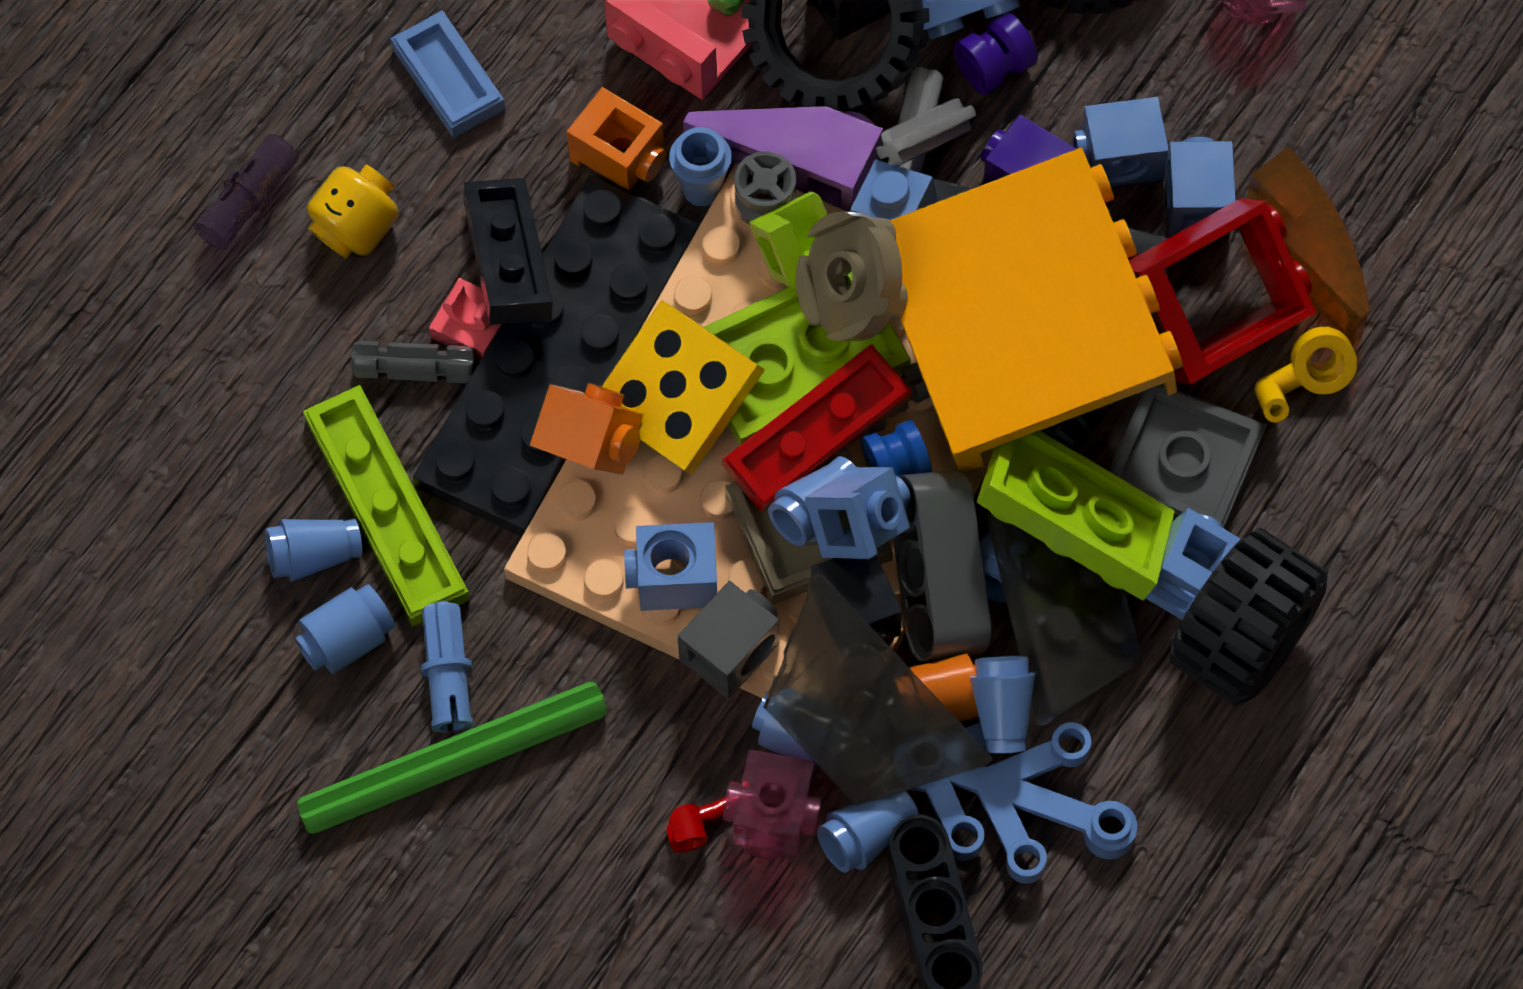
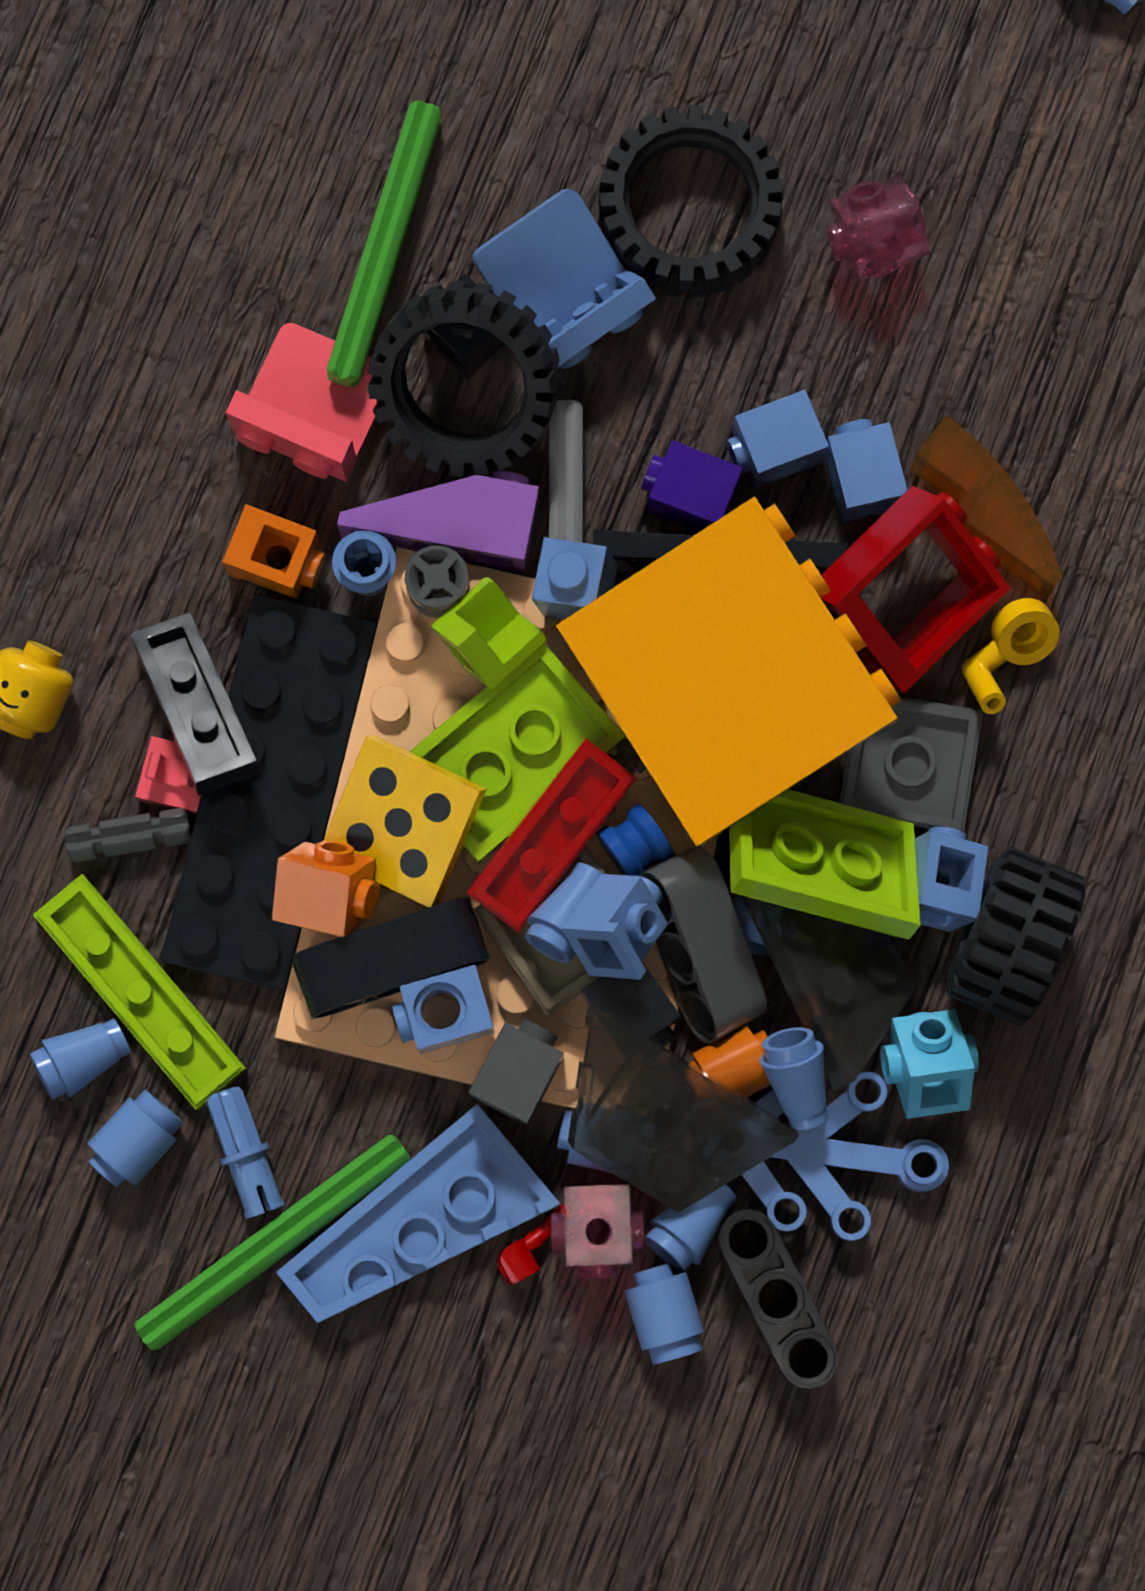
camera: 15 degrees left, 15 degrees up
(448, 74) = (82, 510): medium blue tile -> none
(602, 508) = (388, 955): none -> black beam
(608, 762) = (430, 1210): none -> medium blue wing
(820, 905) = (664, 1313): none -> medium blue brick
(876, 290) = (580, 689): dark tan plate -> none
(925, 132) = (583, 484): light grey axle -> none
(995, 53) = (629, 368): dark purple wheel -> none
(1139, 724) = (930, 1063): none -> medium azure brick

